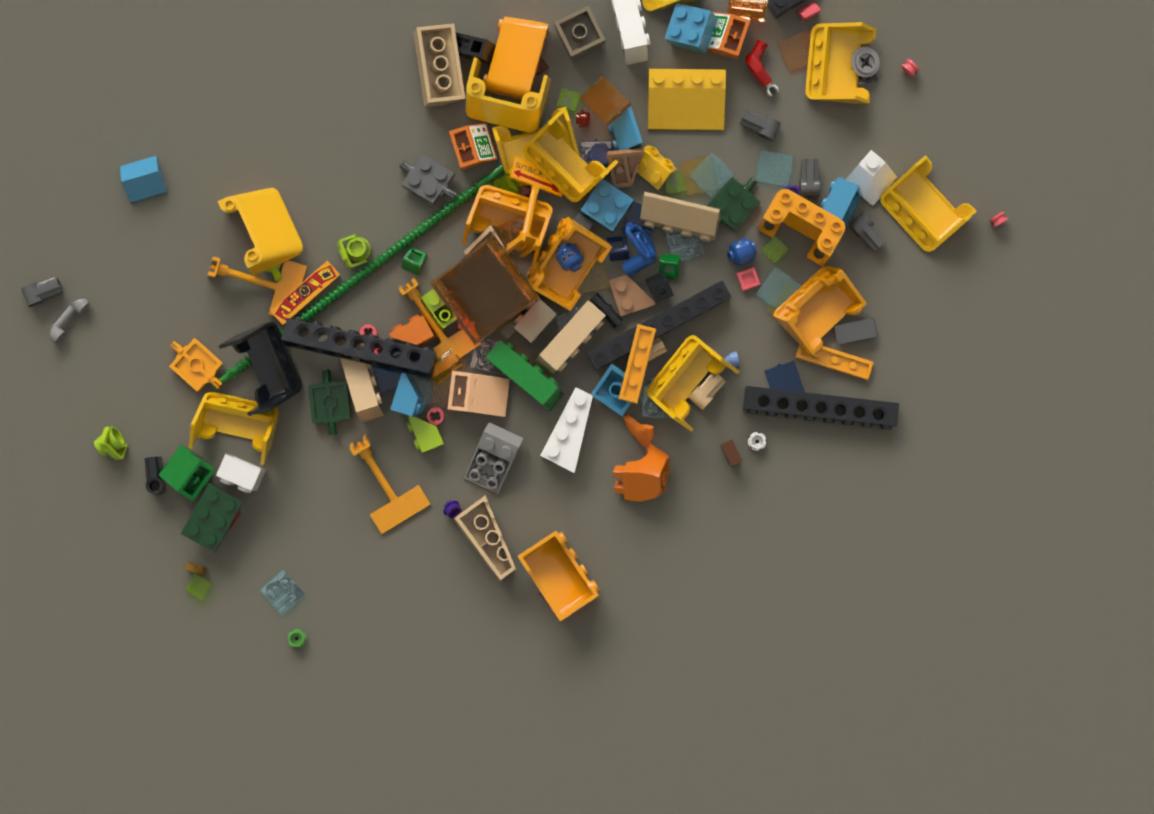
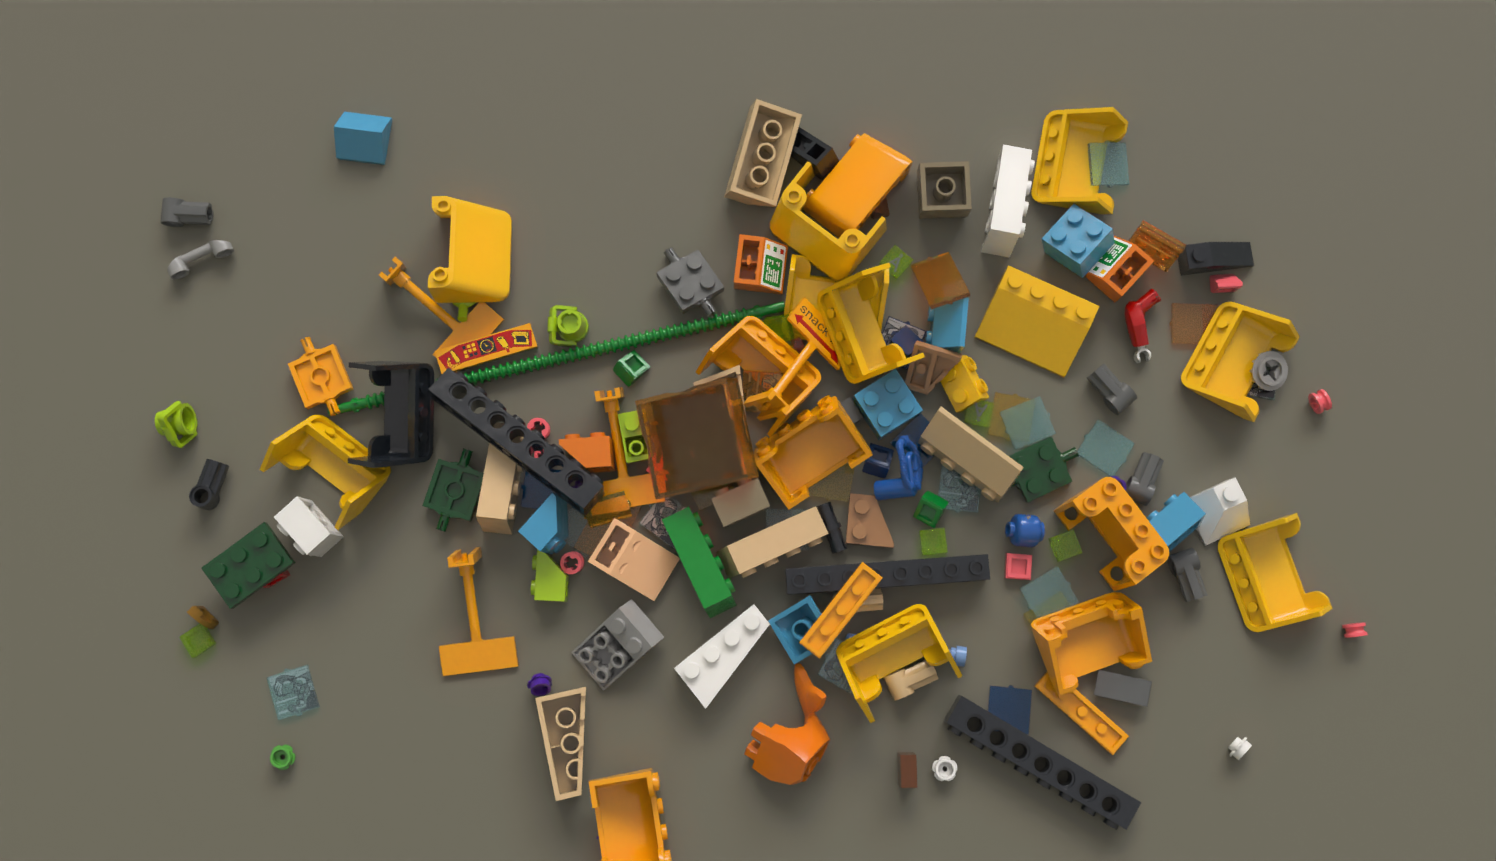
camera: 25 degrees right, 5 degrees down
(187, 472) = (246, 498): green slope -> none
(570, 257) = (816, 445): blue head -> none
(583, 118) = (903, 291): clear red plate -> none
(659, 287) = (907, 529): black brick -> none
(681, 288) = (933, 541): none -> clear neon green tile
(952, 336) = (1239, 747): none -> white plate

